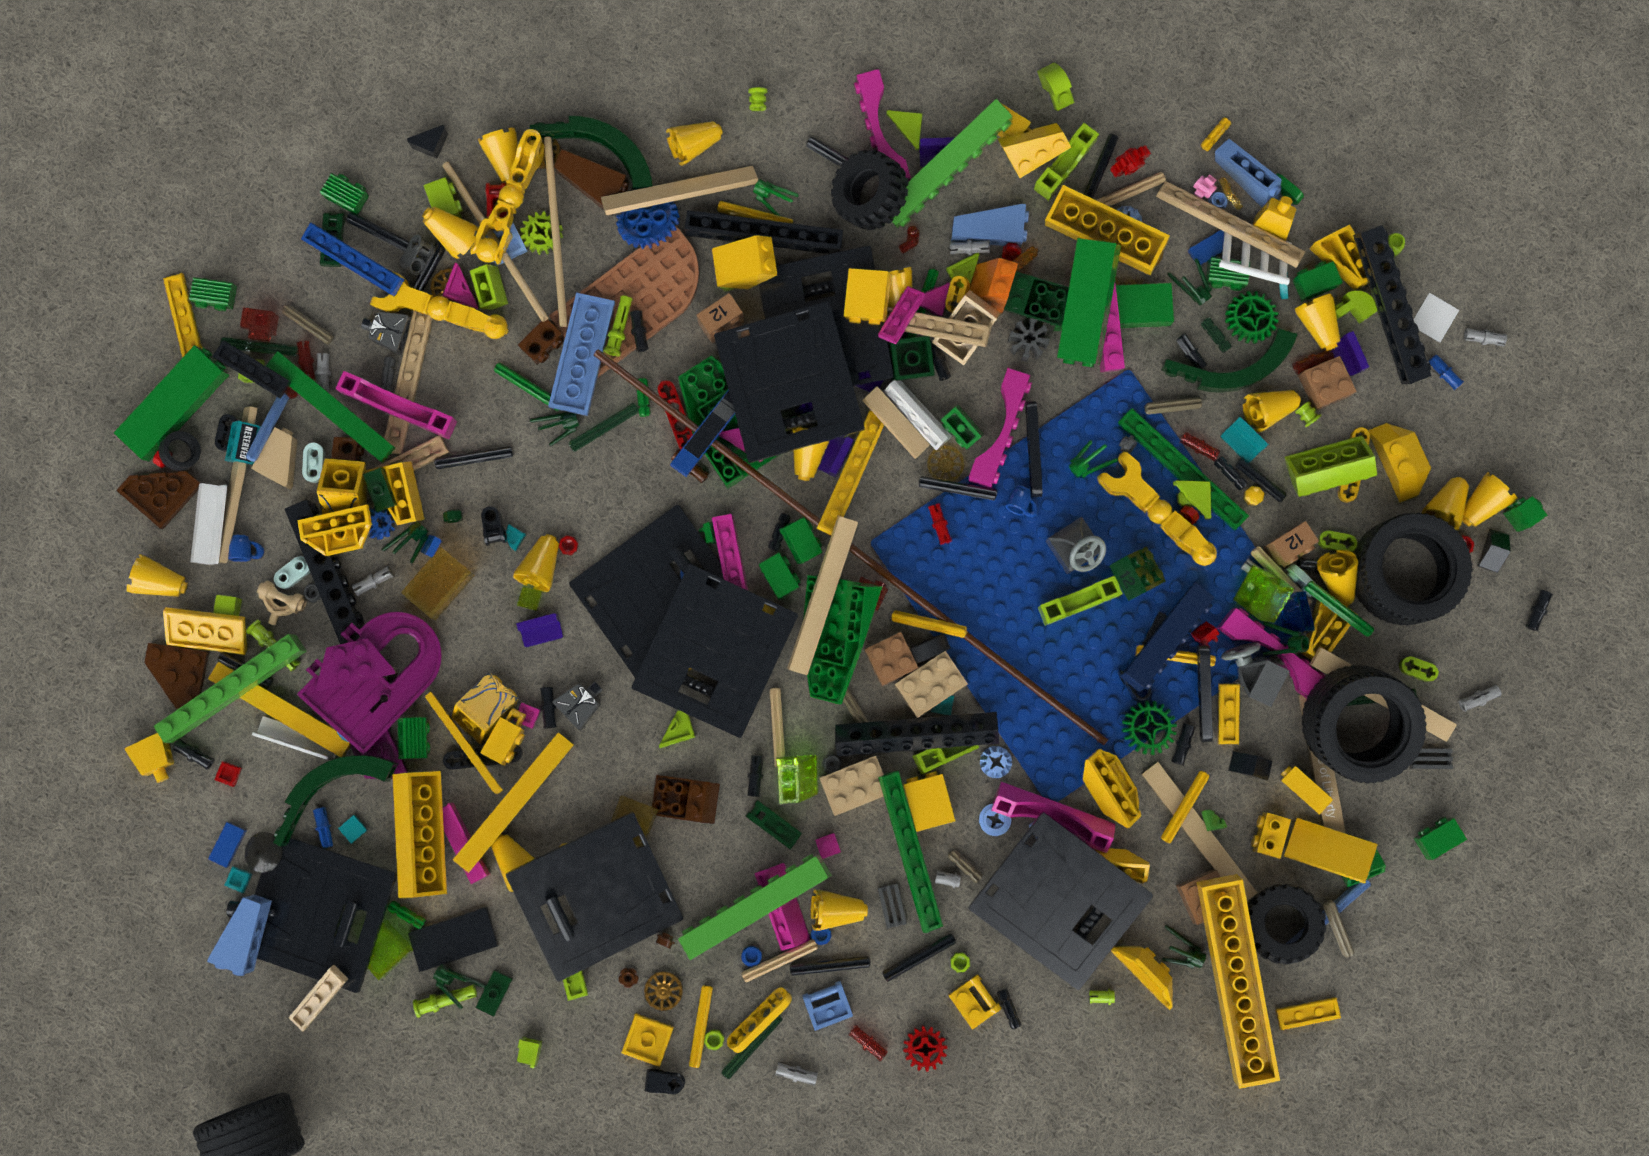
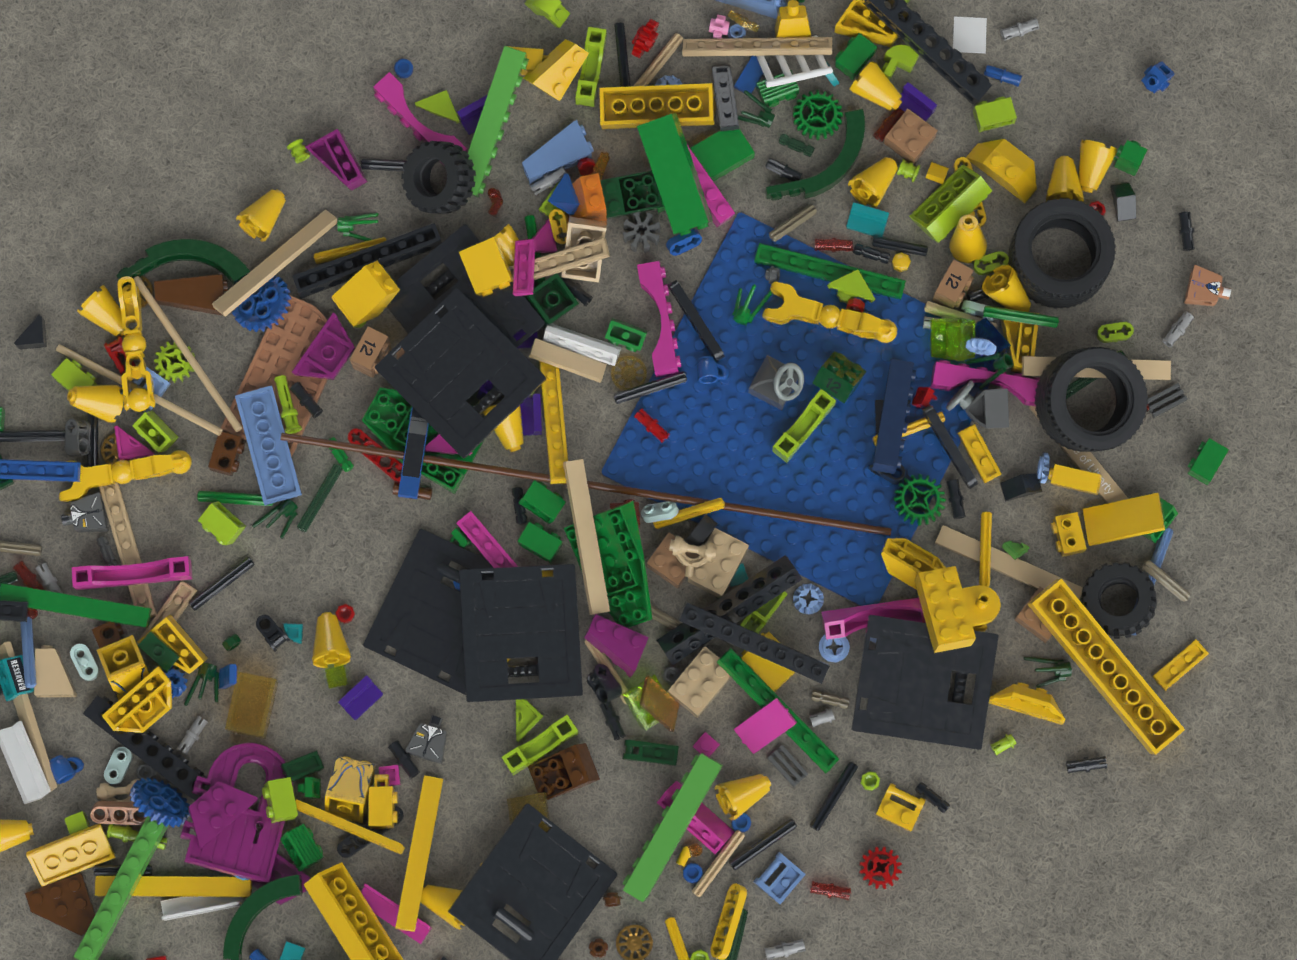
camera: 30 degrees left, 5 degrees down
(277, 617) = (110, 816): none -> nougat beam
(305, 628) = (160, 802): none -> blue gear
(414, 685) = (280, 800): none -> lime brick
(450, 688) = (311, 788): none -> green tile
(453, 664) = (302, 766): none -> dark green tile
(502, 403) = (221, 523): none -> lime brick
(676, 763) = (540, 746): none -> lime arch
(681, 297) = (327, 352): none -> magenta wing
(759, 935) = (688, 852): none -> arm
(764, 740) = (604, 685): none -> black piece
(789, 123) = (338, 157): none -> magenta wedge
(798, 708) = (616, 642): none -> magenta wedge
(804, 786) = (659, 704): none -> clear orange piece
(891, 859) = (765, 725): none -> dark pink piece
(894, 73) = (403, 68): none -> blue tile
(903, 607) = (659, 511): none -> light aqua plate
(921, 778) = (753, 642): none -> black brick
(924, 670) = (705, 551): none -> tan piece
(976, 269) = (565, 196): none -> blue slope
(1062, 370) = (684, 242): none -> blue beam
(1124, 850) = (953, 610): none -> yellow brick
(1169, 1058) = (1086, 764): none -> black pin
(1174, 256) = (725, 98): none -> tile
(1281, 760) = (1043, 468): none -> light blue gear
(1286, 617) = (981, 346): none -> light blue gear
(1328, 509) = (968, 240): none -> yellow cone
(1333, 430) = (937, 173): none -> yellow tile
(1418, 404) = (994, 114): none -> lime brick
(1527, 673) = (1205, 287): none -> nougat torso
(1592, 451) = (1157, 77): none -> blue brick

